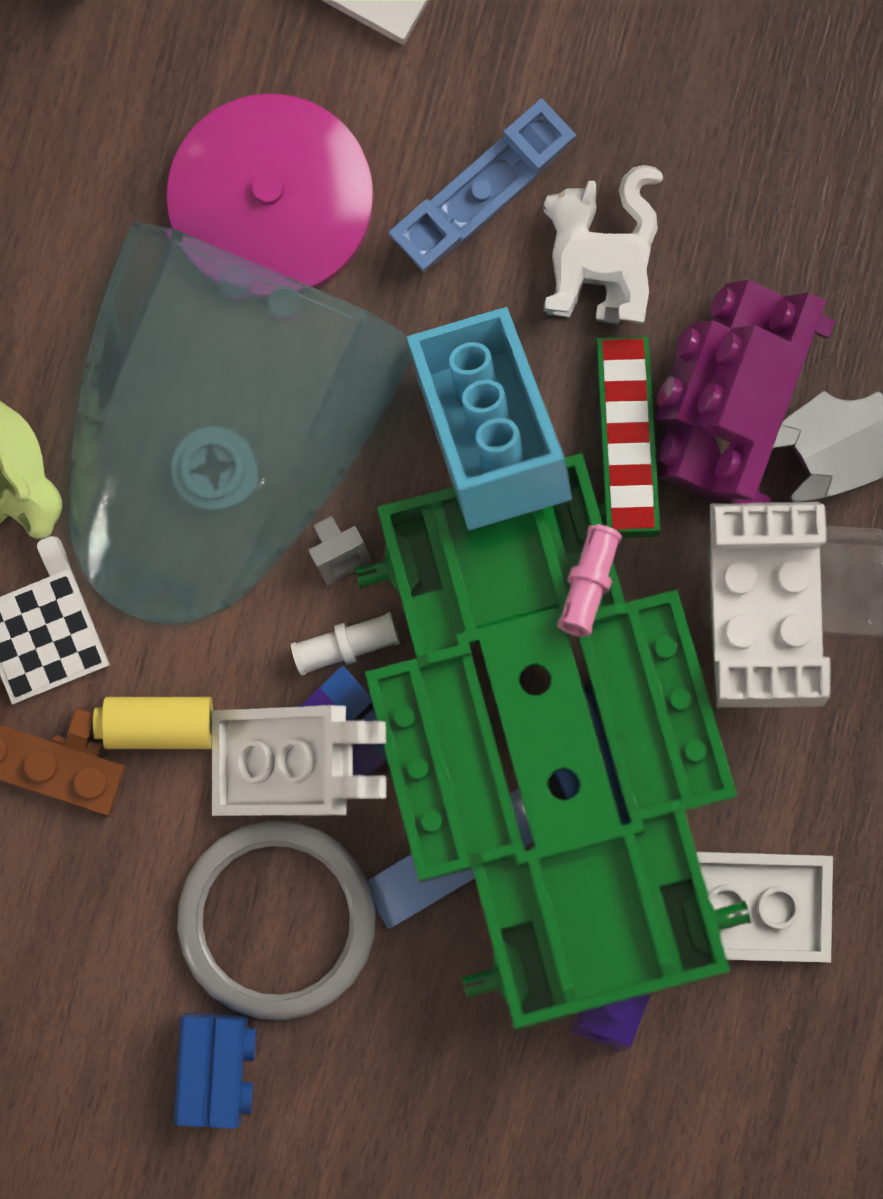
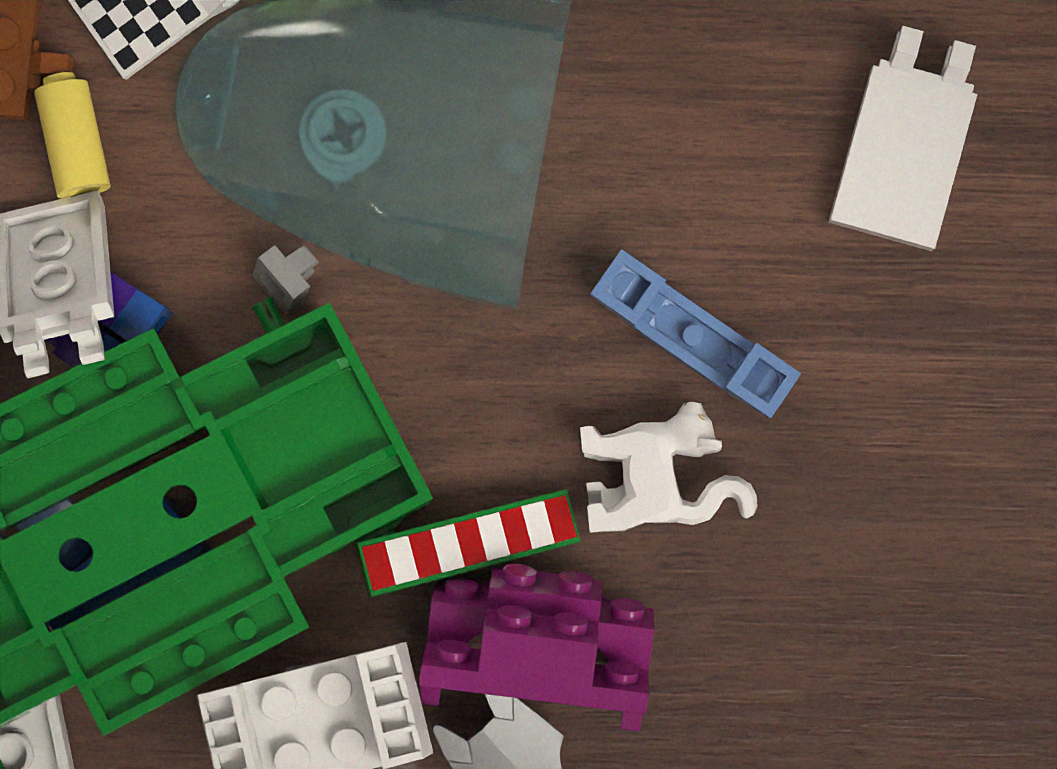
camera: 75 degrees right, 0 degrees up
(274, 186) = (641, 124): dark pink dish -> none
(345, 643) = (194, 306): white pin -> none
(489, 418) = (442, 392): medium azure brick -> none
(589, 580) = (293, 533): bright pink pin -> none

